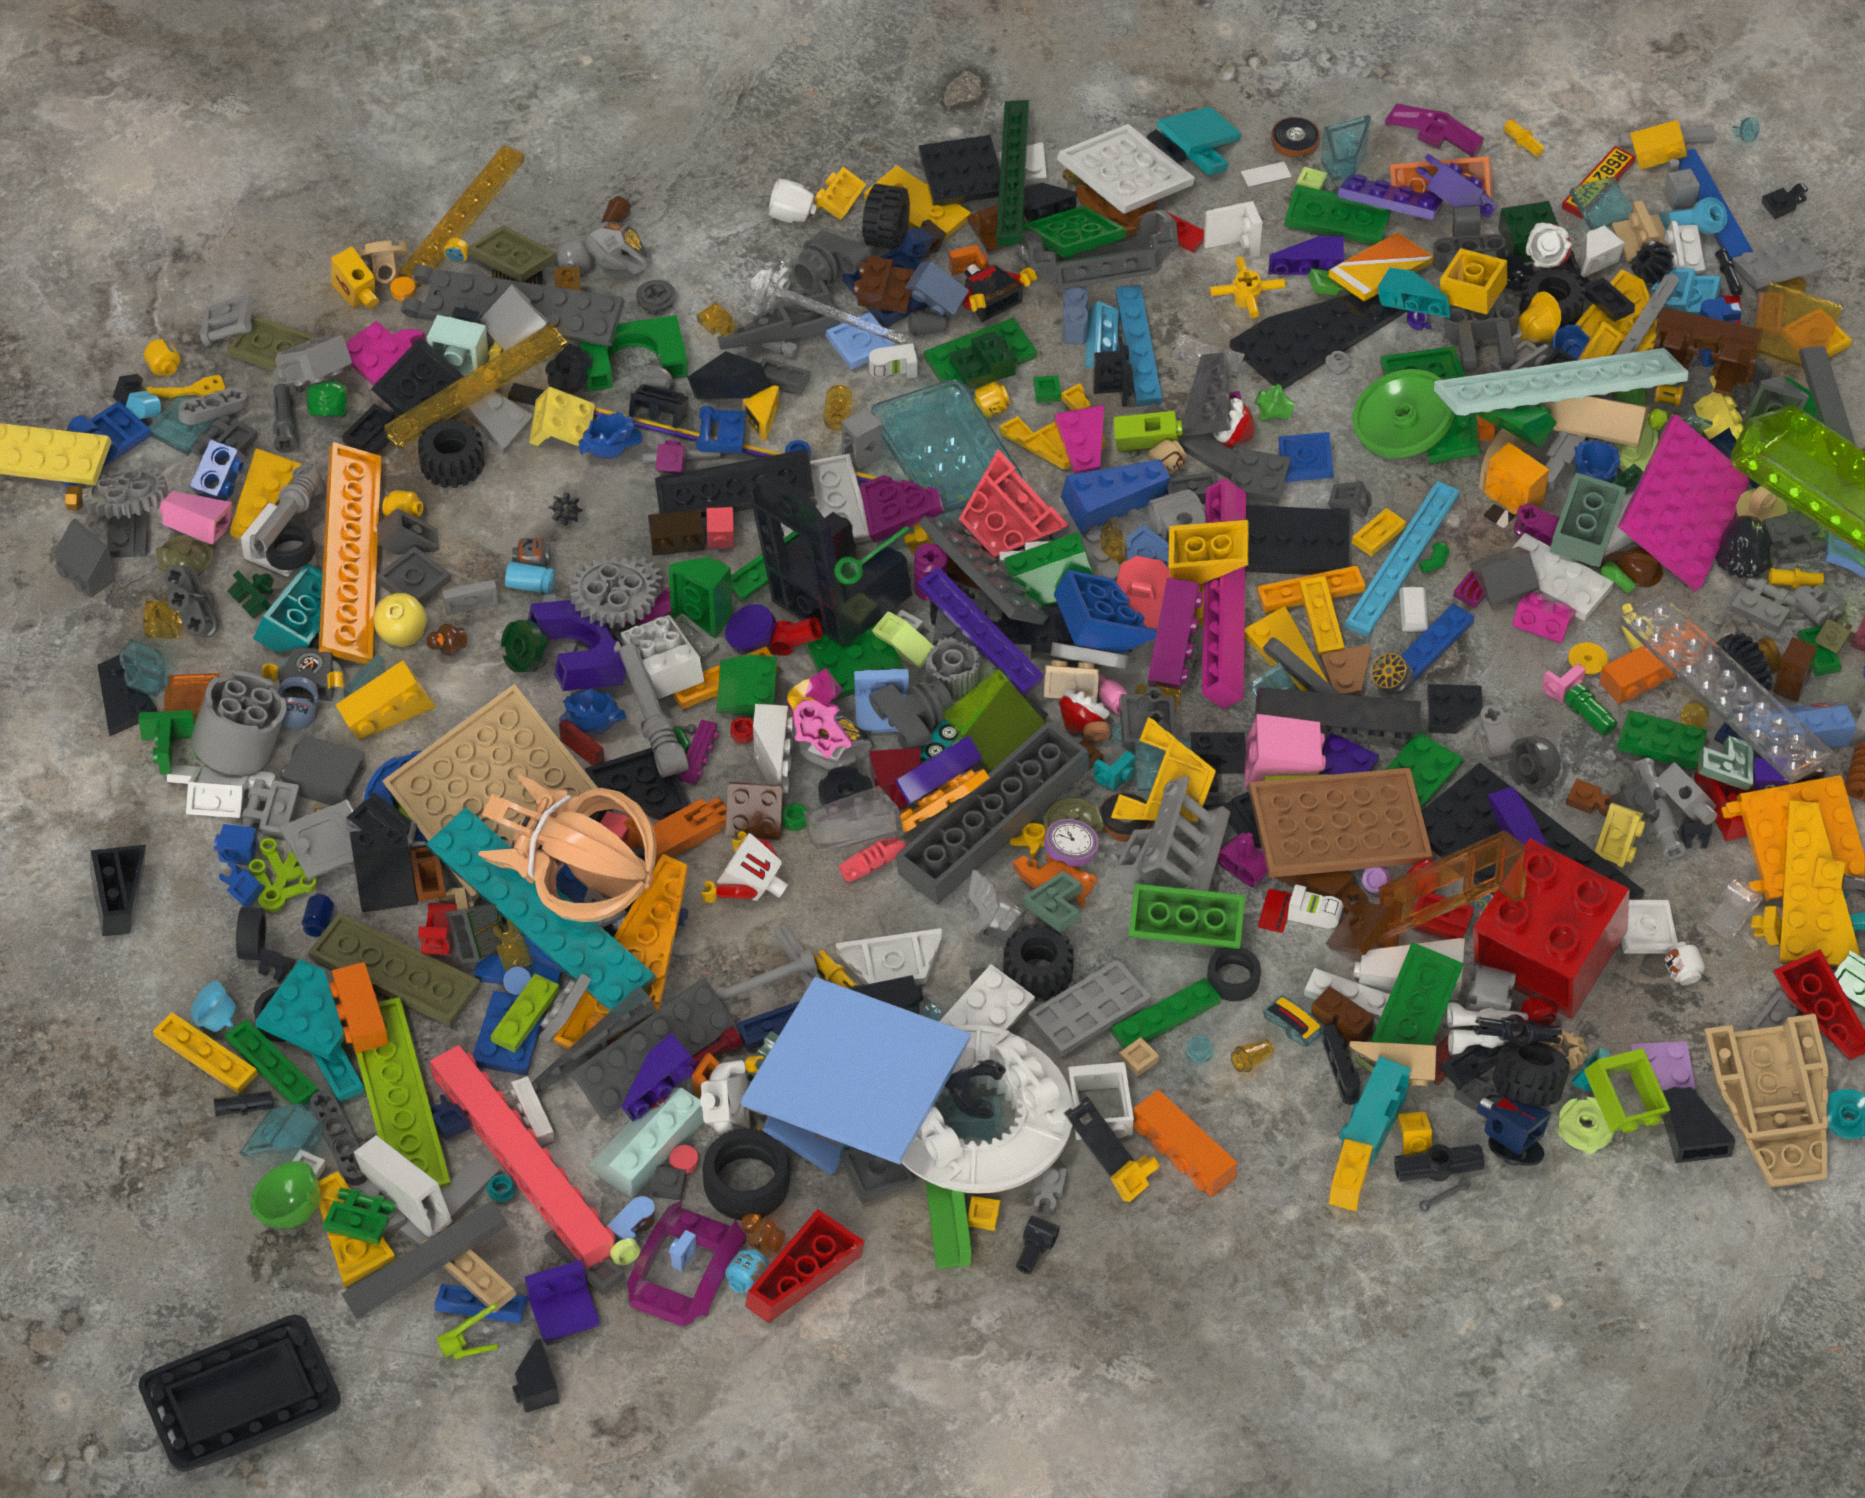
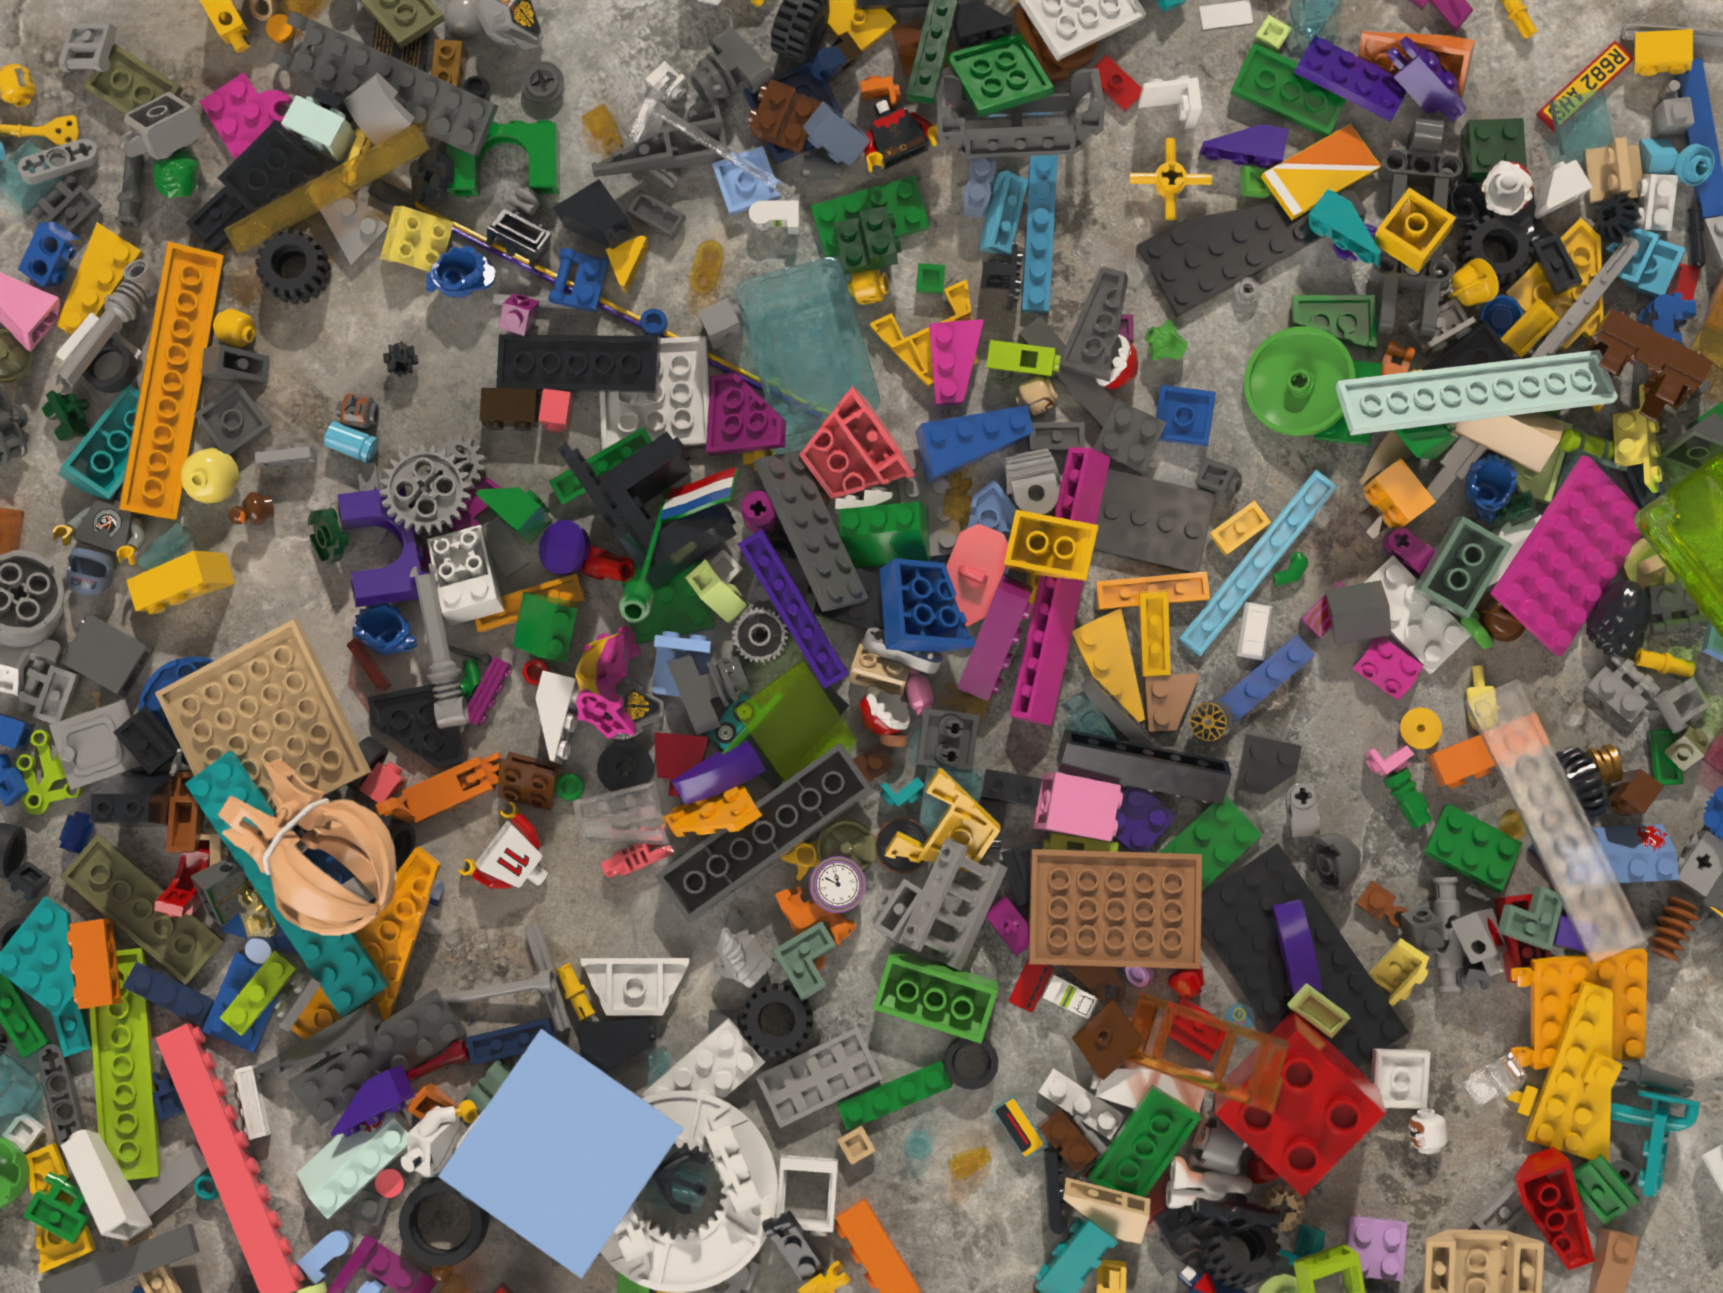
camera: 15 degrees right, 30 degrees up
(431, 1028) = (168, 993): none -> dark blue plate

